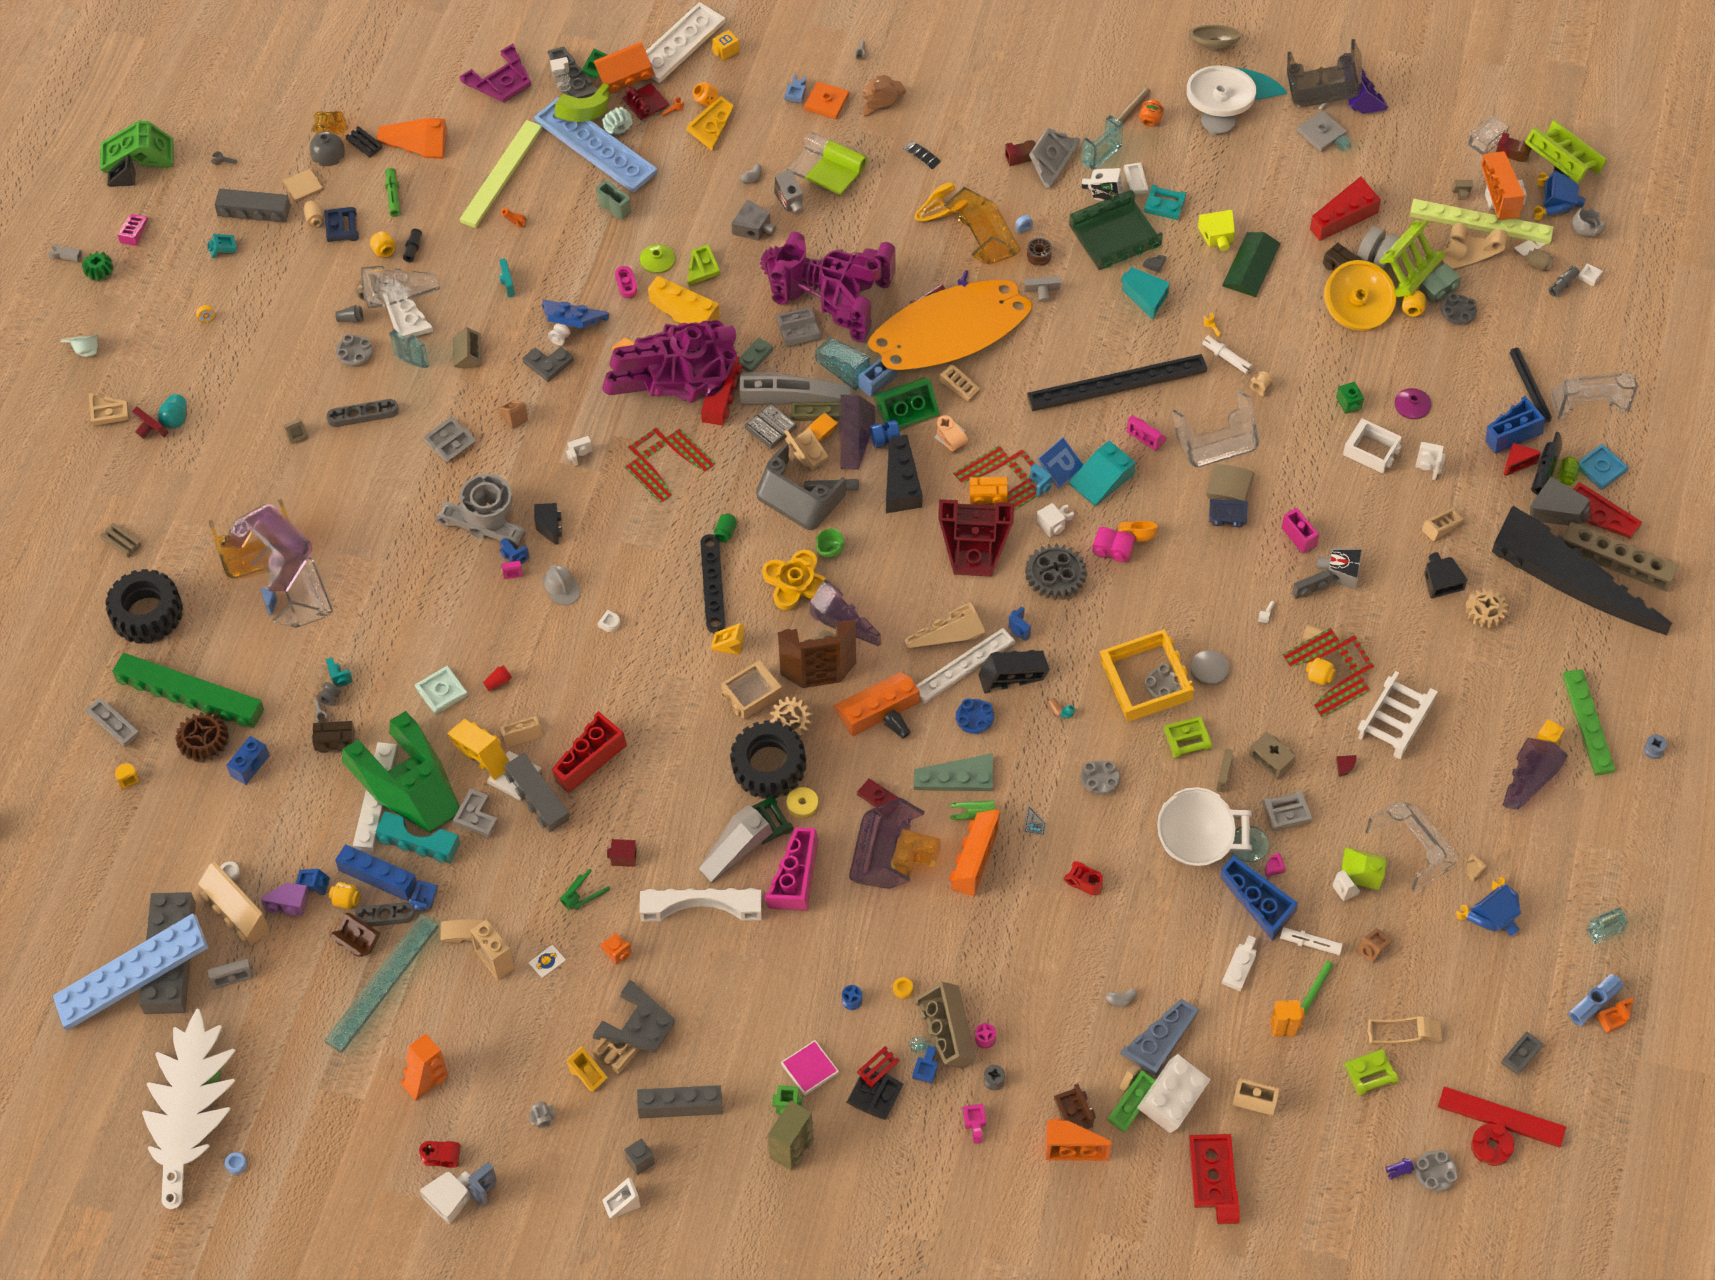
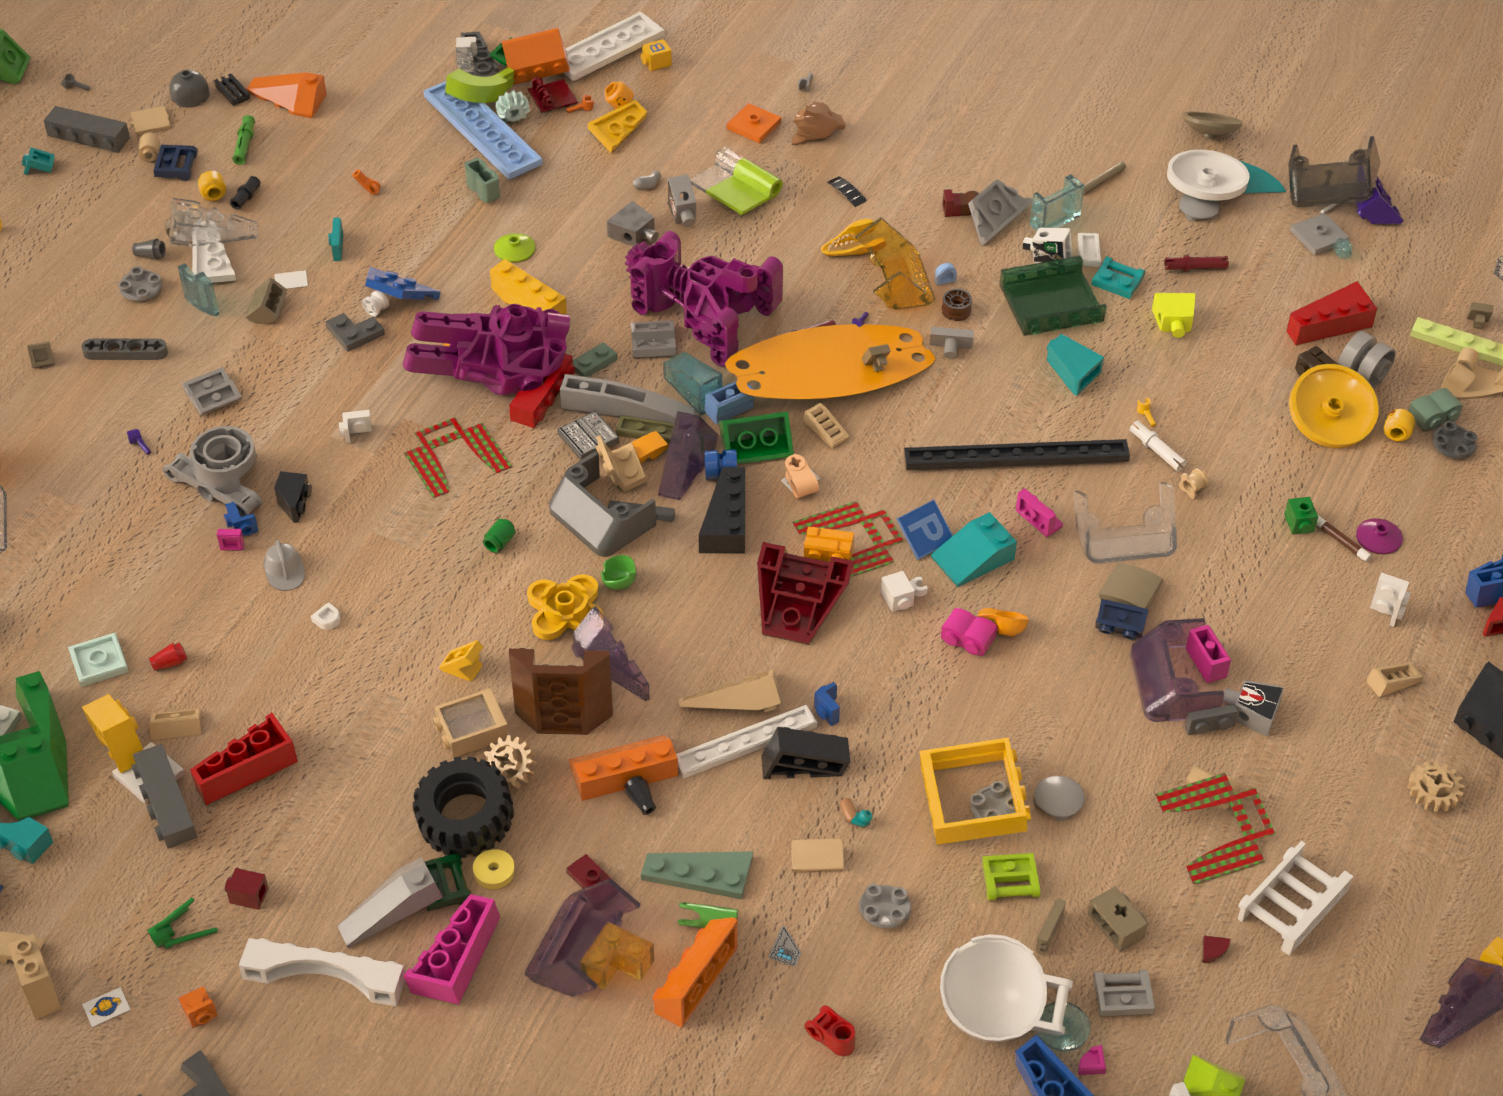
camera: 10 degrees right, 10 degrees down
(330, 121) = (204, 63): clear yellow piece -> none
(400, 491) = (135, 436): none -> dark purple hand
(471, 815) = (77, 809): light grey plate -> none
(479, 321) = (292, 279): none -> white sticker
(500, 174) = (368, 141): yellowish green tile -> none
(504, 82) = (404, 55): magenta wing -> none
(514, 413) = (295, 377): medium nougat slope -> none
(626, 283) = (470, 263): dark pink plate -> none
(702, 265) = (561, 261): lime wing -> none
(712, 583) = (464, 595): black plate -> none
(796, 90) = (721, 108): medium blue plate -> none
(974, 715) = (742, 802): blue dish -> none
(988, 315) = (877, 357): none -> dark tan tile
(1040, 747) = (817, 855): none -> tan slope
(1042, 478) = (897, 543): dark azure bracket -> none
(1055, 571) = (888, 650): dark grey gear -> none
(1151, 112) = (1121, 185): orange head -> none
(1155, 263) = (1092, 338): dark grey tile -> none
(1219, 179) = (1189, 263): none -> dark red pin
(1251, 263) = (1208, 355): dark green slope -> none
(1264, 615) = (1143, 748): white hand -> none
(1269, 568) = (1160, 692): none -> windscreen
(1321, 671) = (1202, 826): yellow head -> none
(1376, 433) = (1329, 561): white window -> none
(1386, 412) = (1343, 539): none -> reddish brown bar
(1424, 265) = (1417, 388): lime fence -> none
(1443, 576) = (1385, 739): black torso -> none

